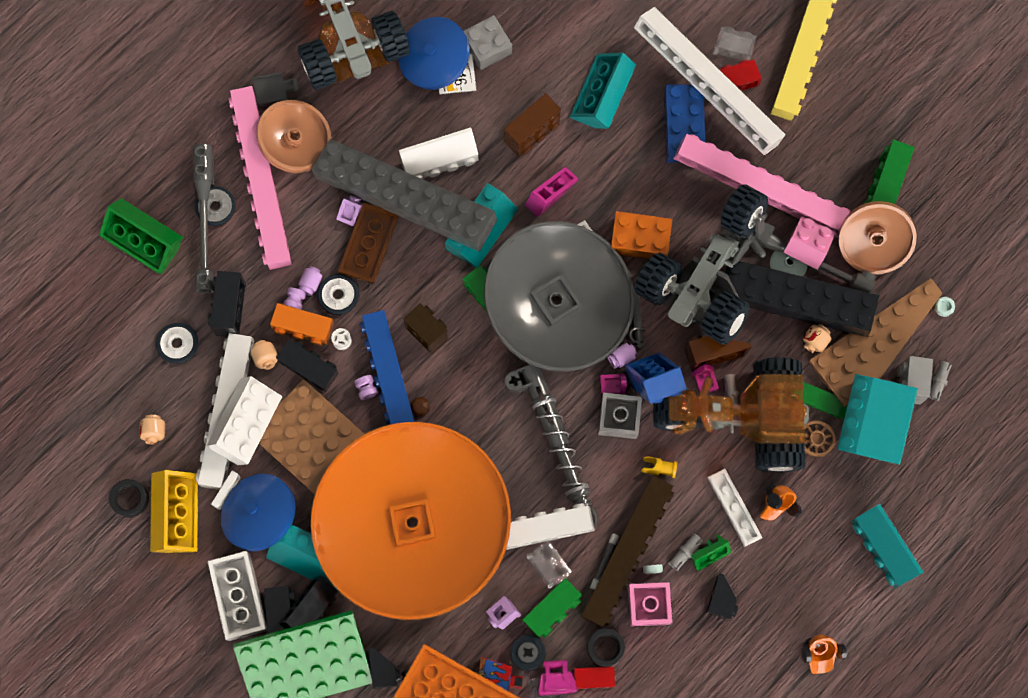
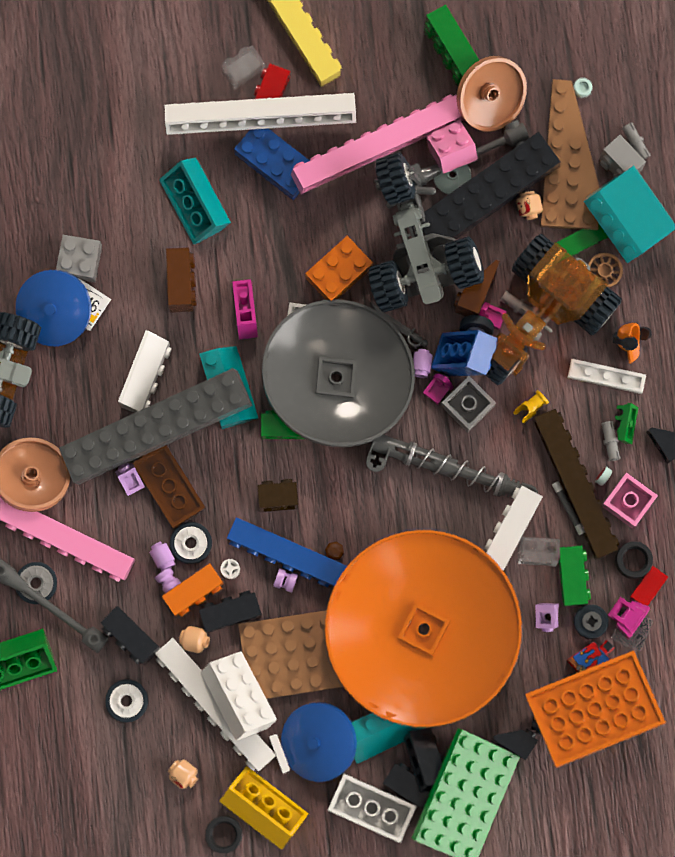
camera: 50 degrees left, 5 degrees up
(689, 372) = (477, 322): none -> black wheel

